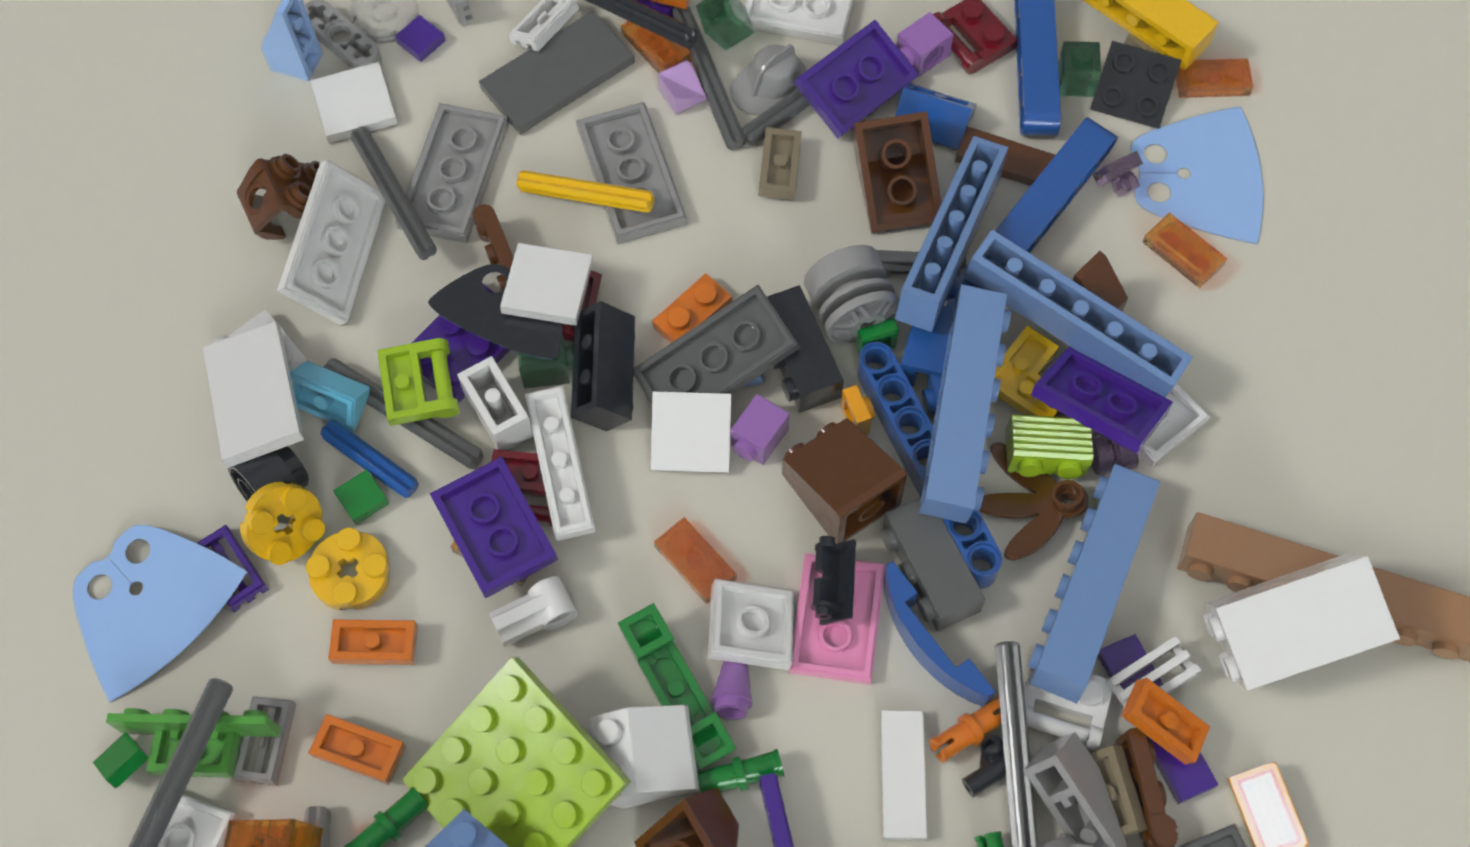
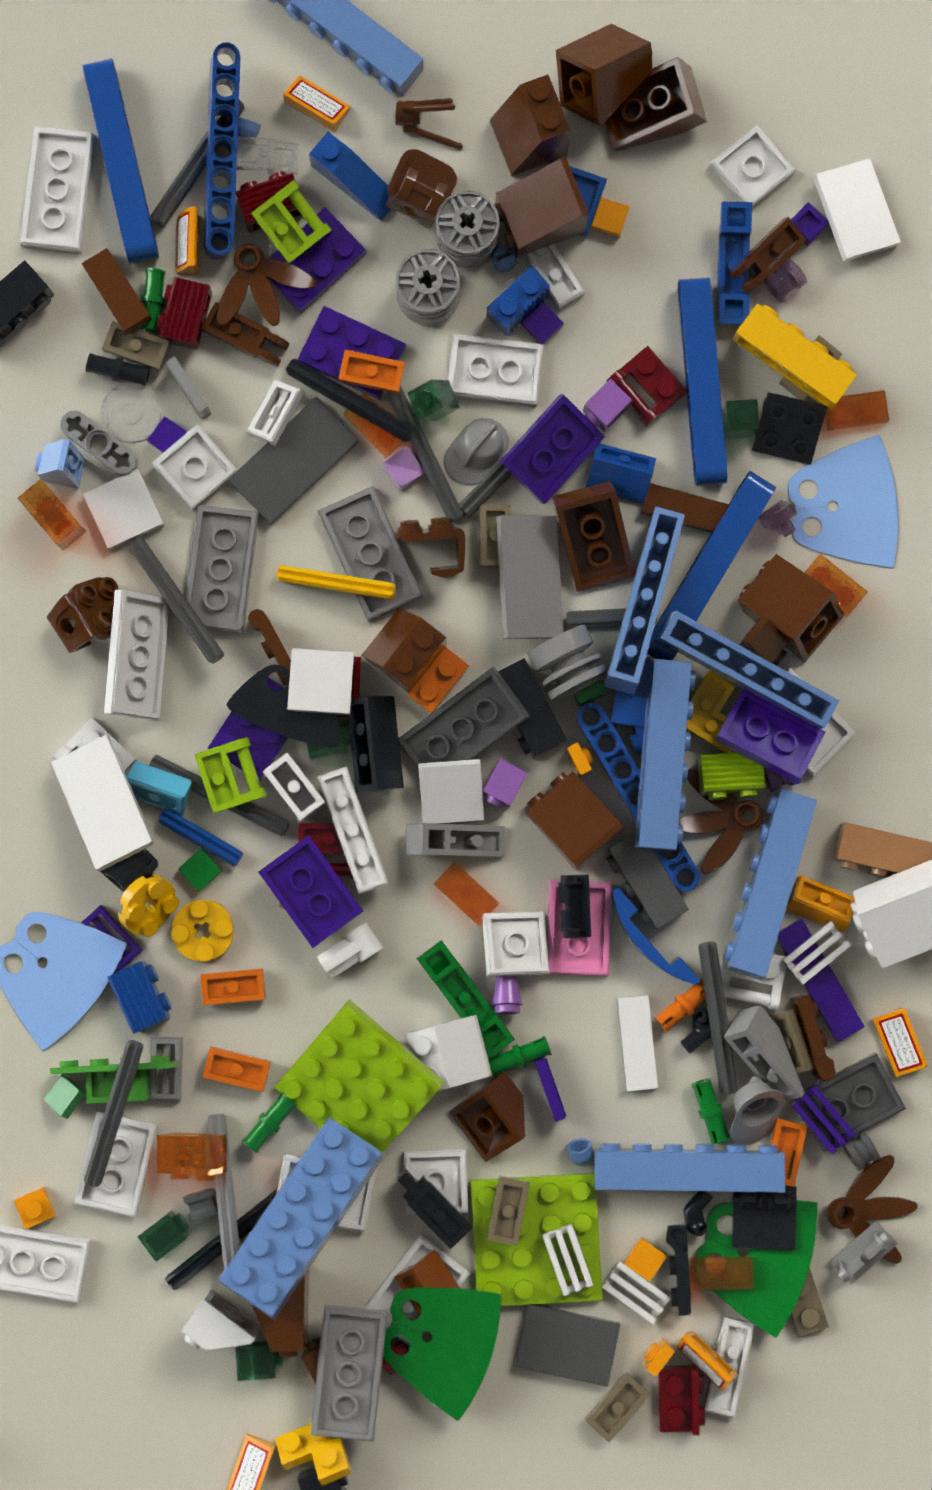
camera: 10 degrees left, 20 degrees up
(249, 640) = (140, 996): none -> blue brick
(269, 91) = (51, 514): none -> clear orange brick
(442, 66) = (194, 467): none -> white tile
(661, 266) = (405, 648): none -> reddish brown slope
(686, 489) = (455, 840): none -> light grey slope
(706, 145) = (439, 529): none -> reddish brown piece
(814, 201) = (529, 577): none -> light grey tile
(1147, 259) = (793, 603): none -> reddish brown slope
(1159, 619) = (821, 903): none -> light orange slope
(1165, 721) = (824, 990): orange plate -> none

